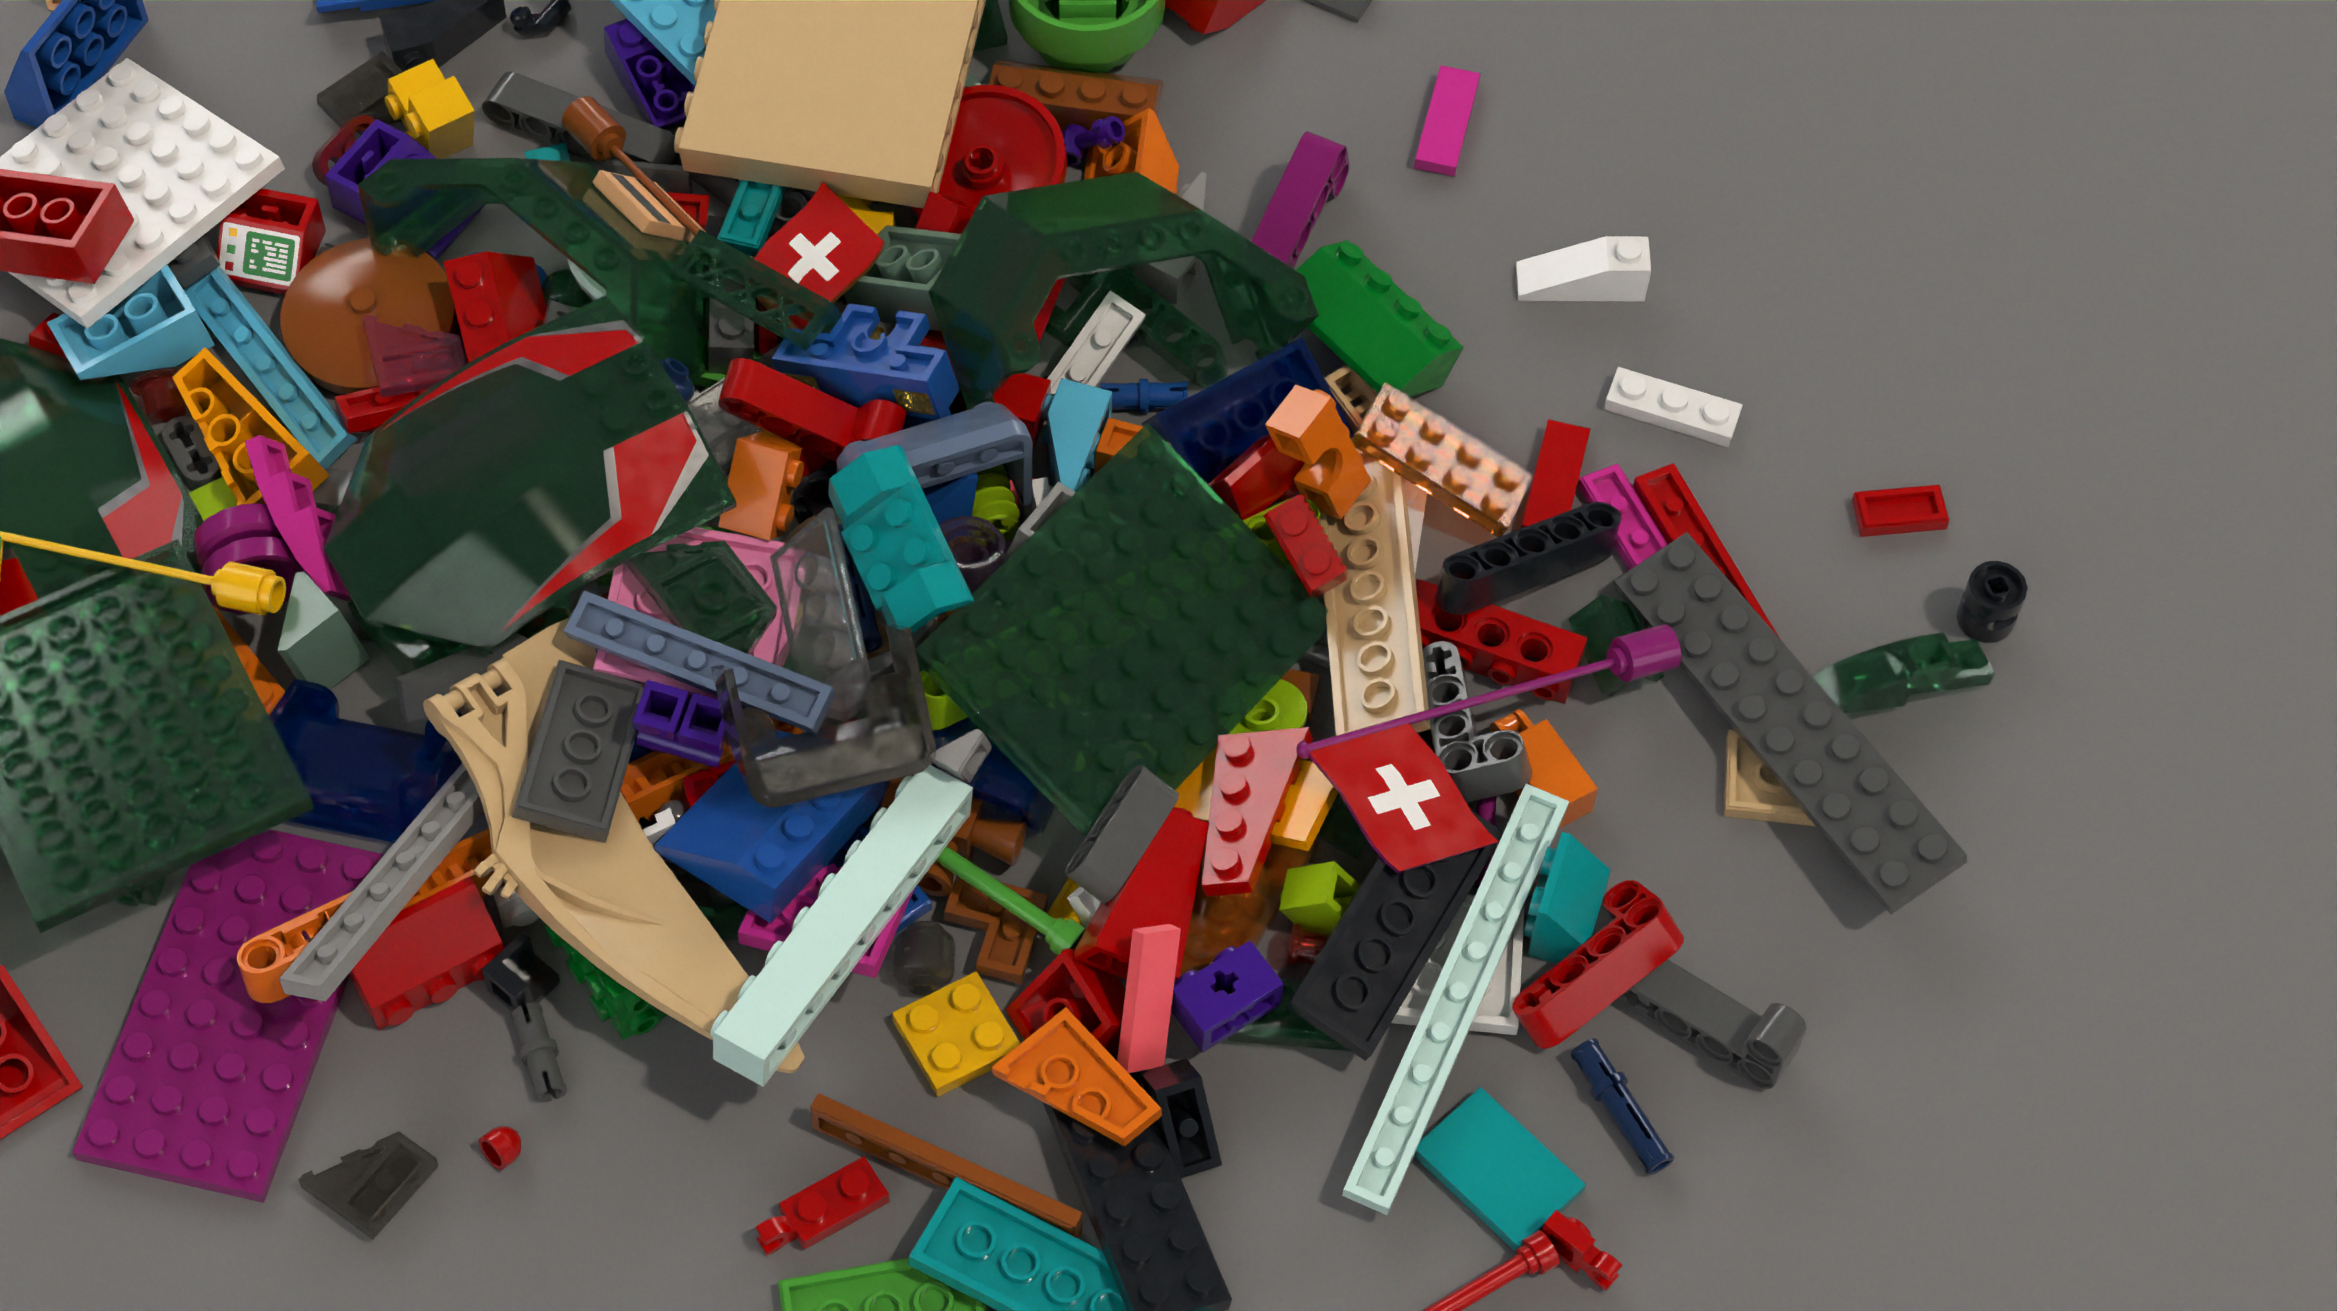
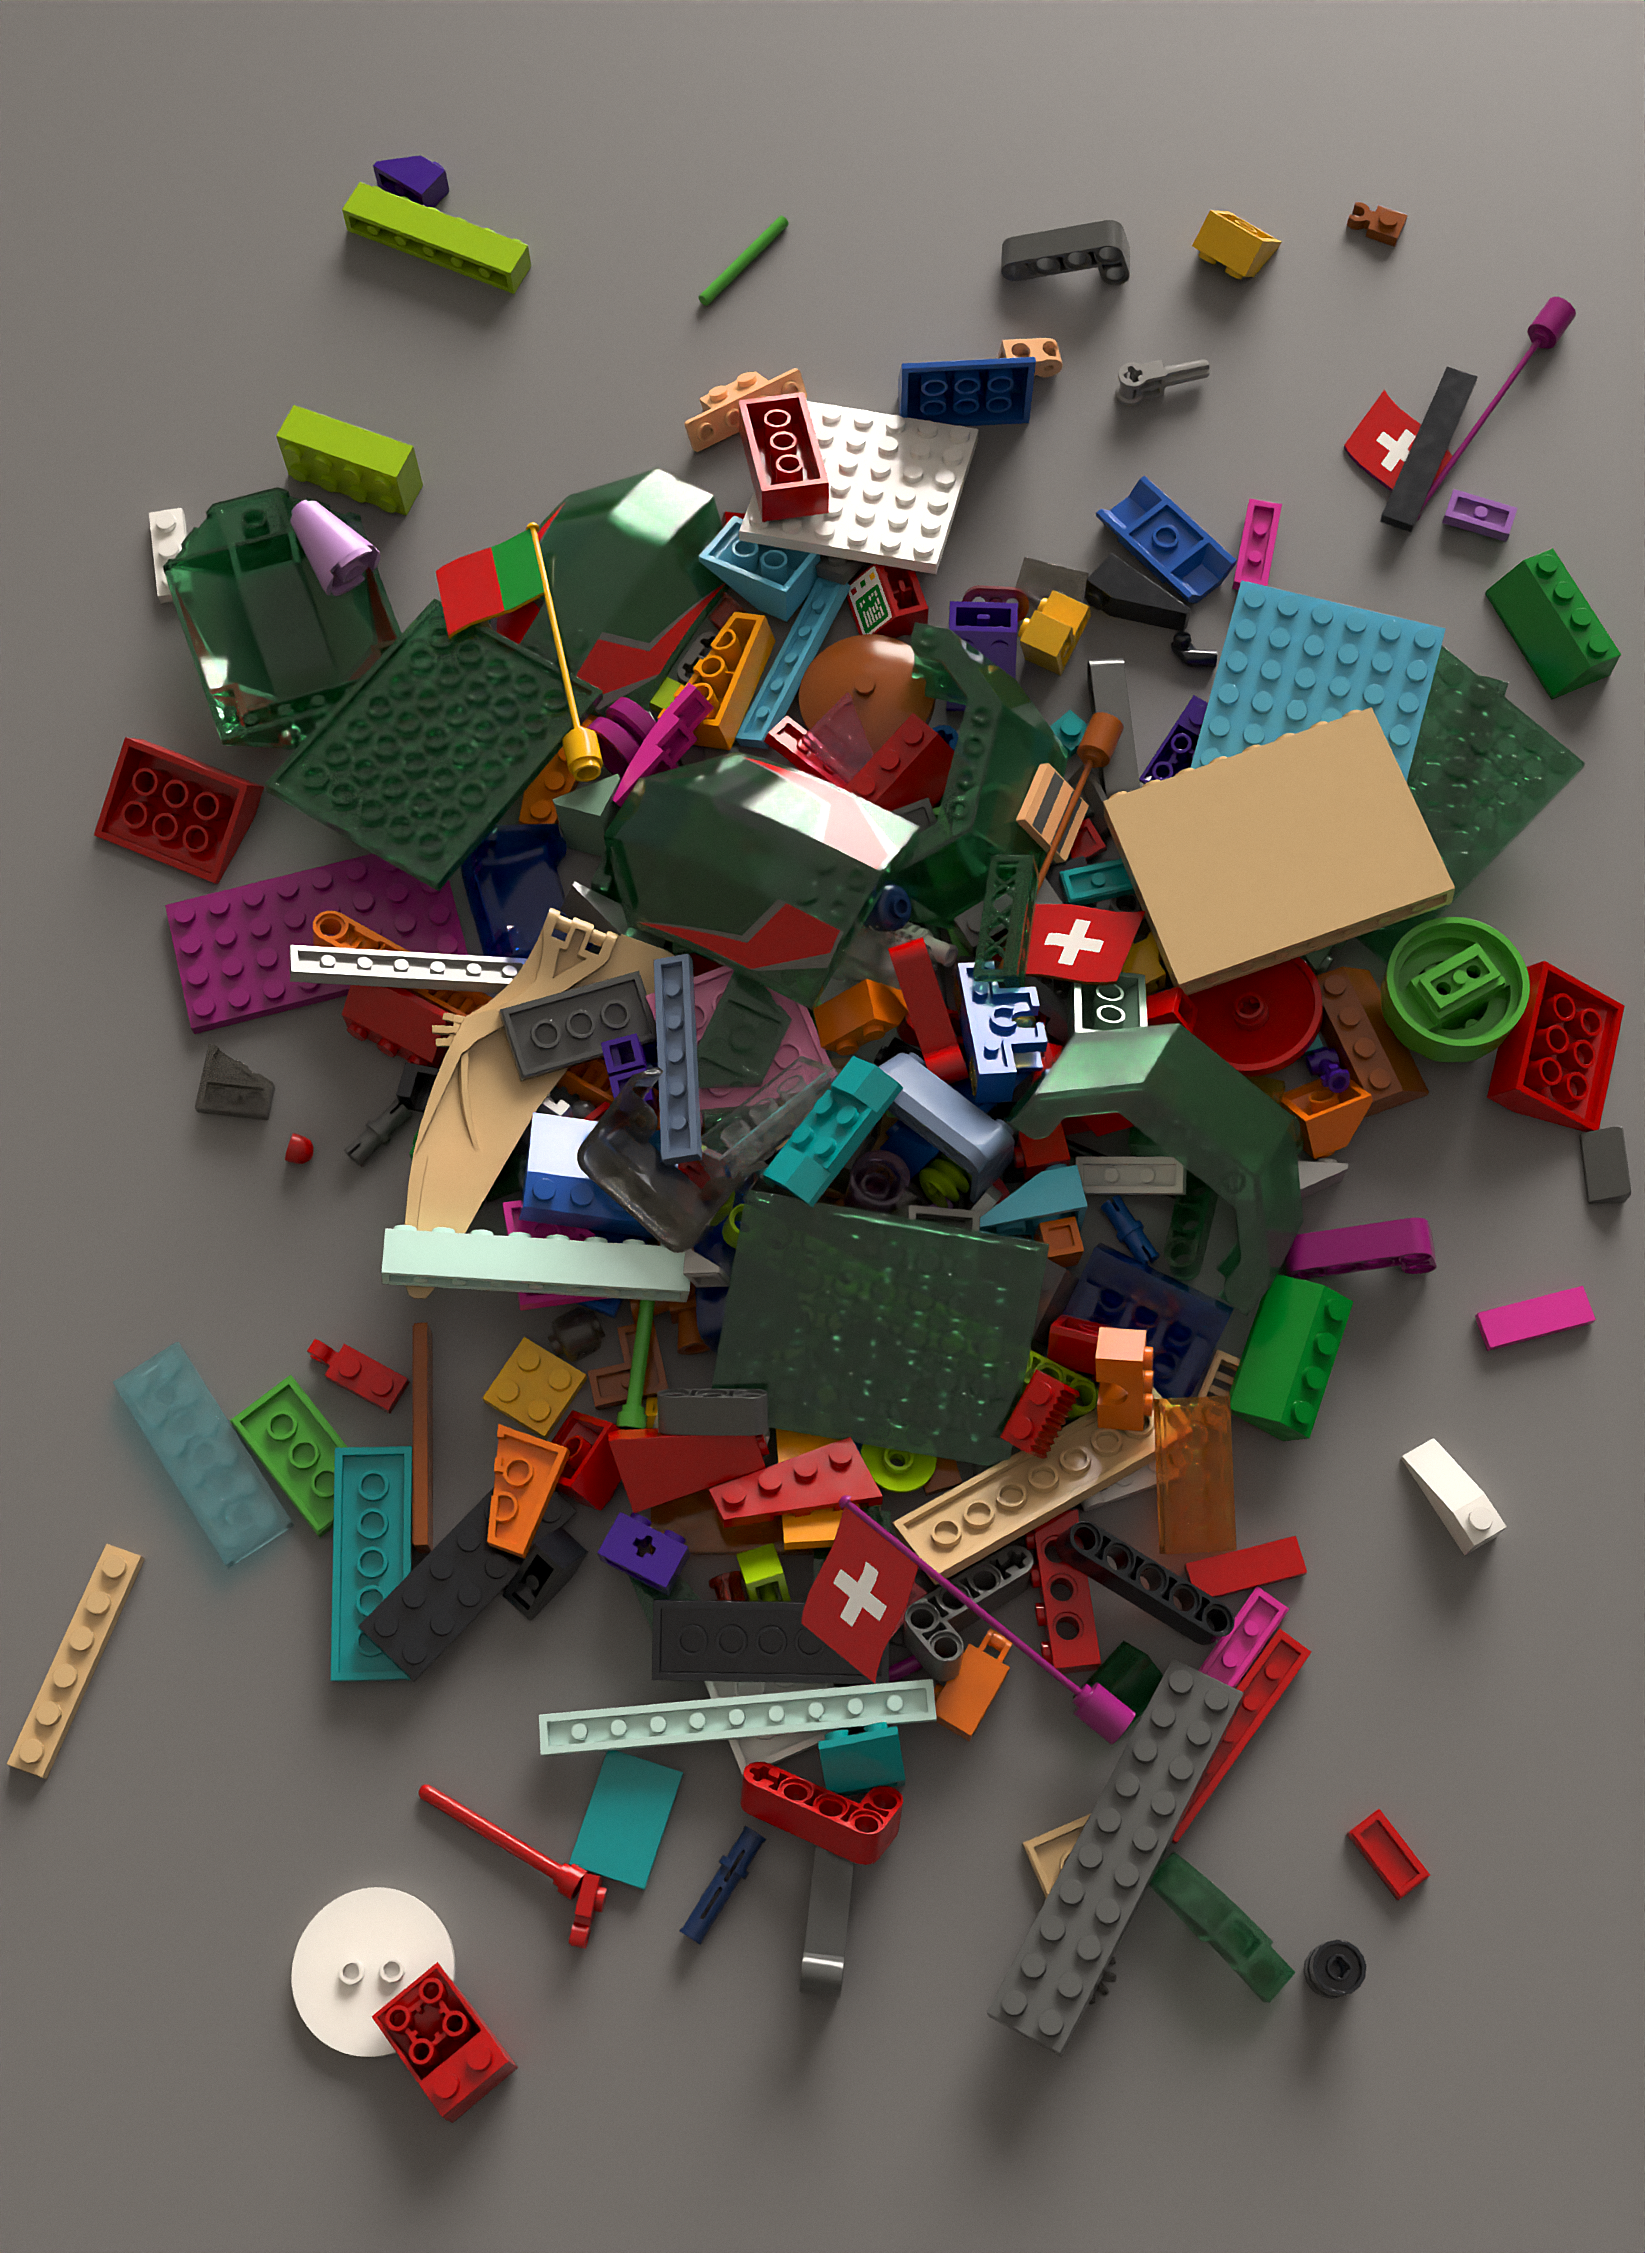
camera: 65 degrees right, 10 degrees up
(1148, 997) = (602, 1500): coral tile -> none
(1673, 407) = (1373, 1626): white plate -> none

